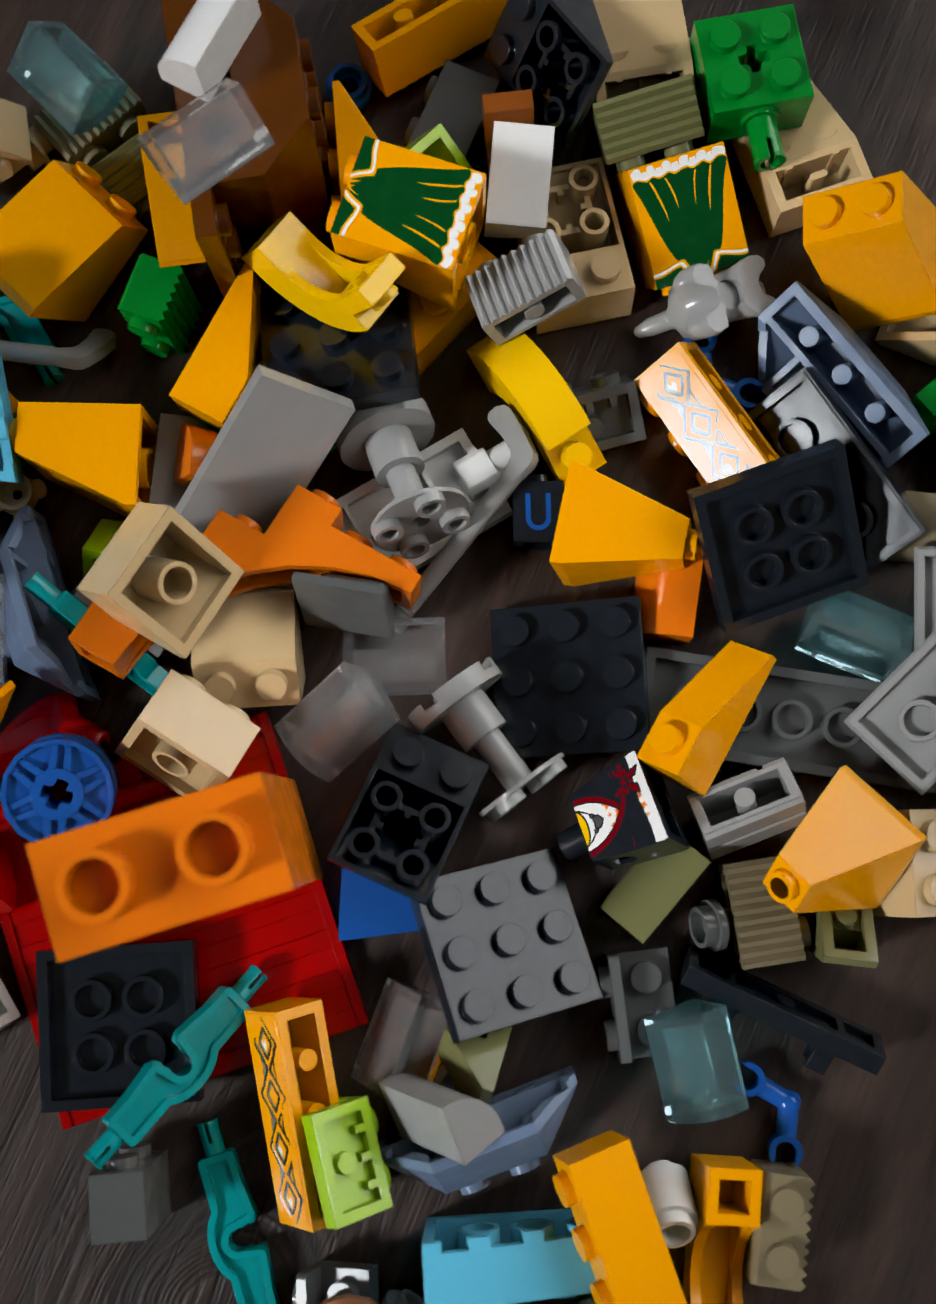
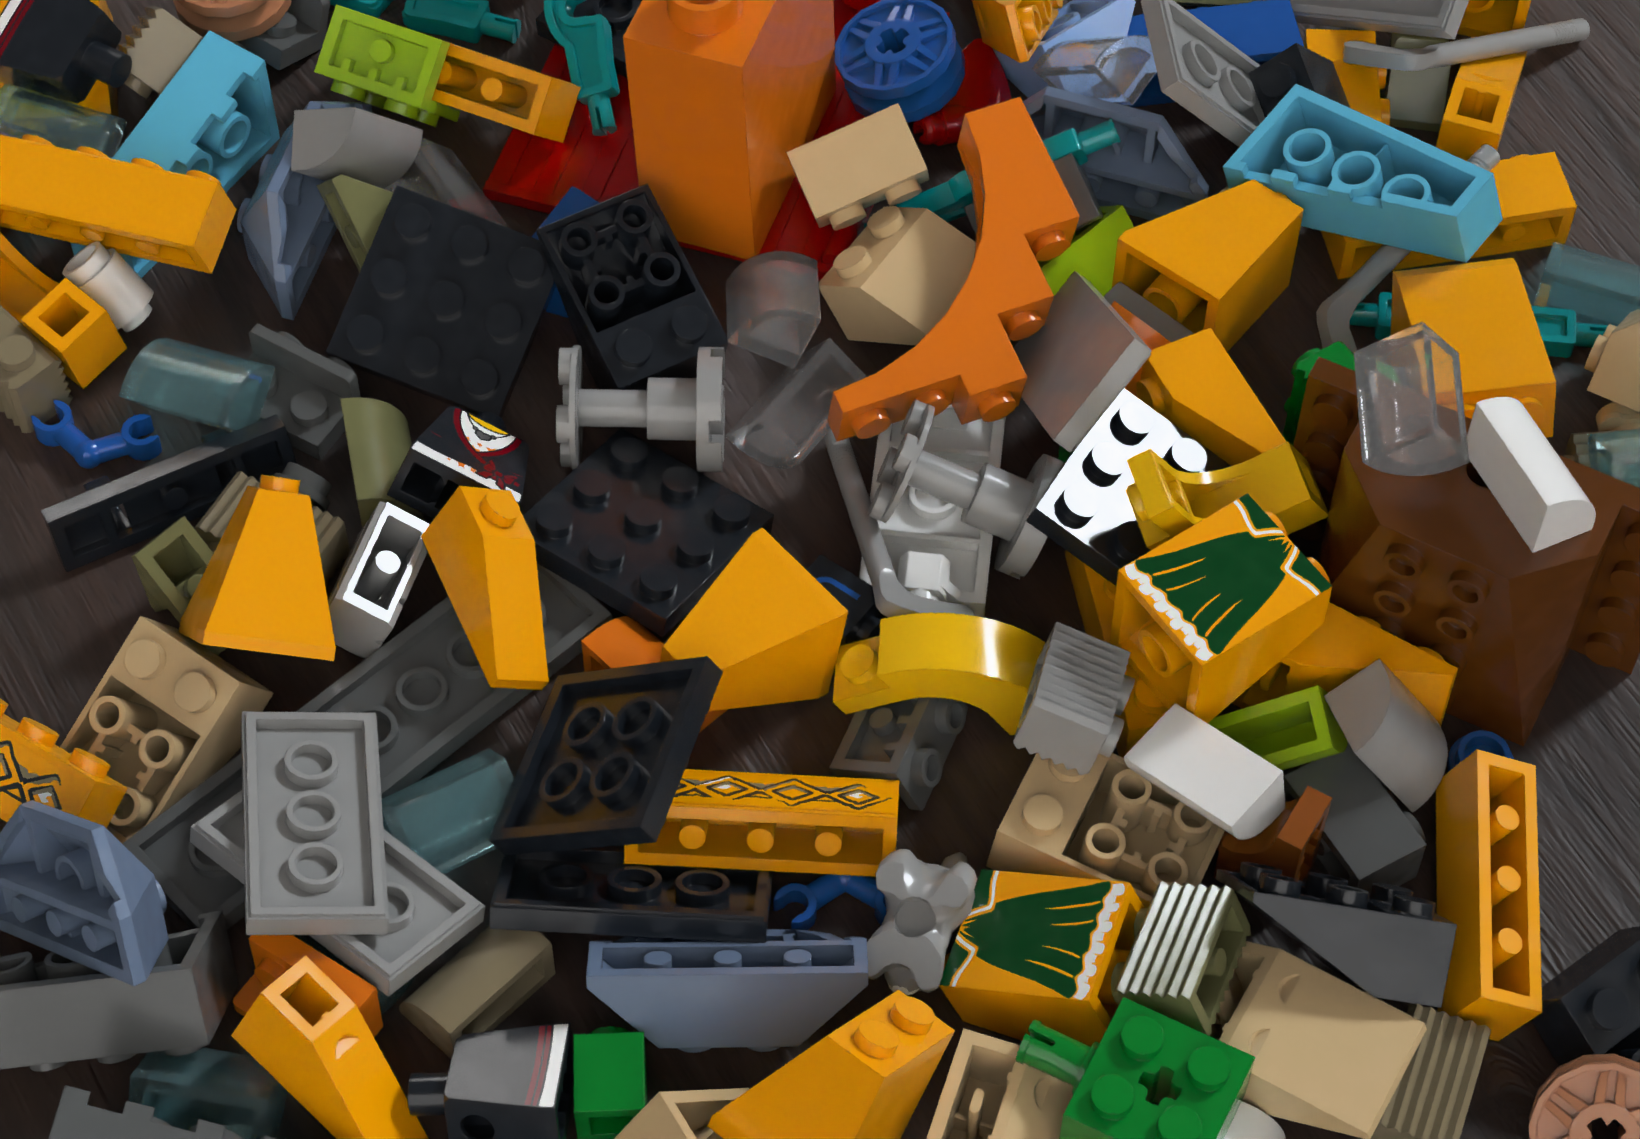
camera: 120 degrees right, 25 degrees down
(161, 578) = (1011, 183): tan slope -> none
(345, 603) = (877, 354): dark grey piece -> none
(398, 113) = (1391, 733): none -> light grey brick

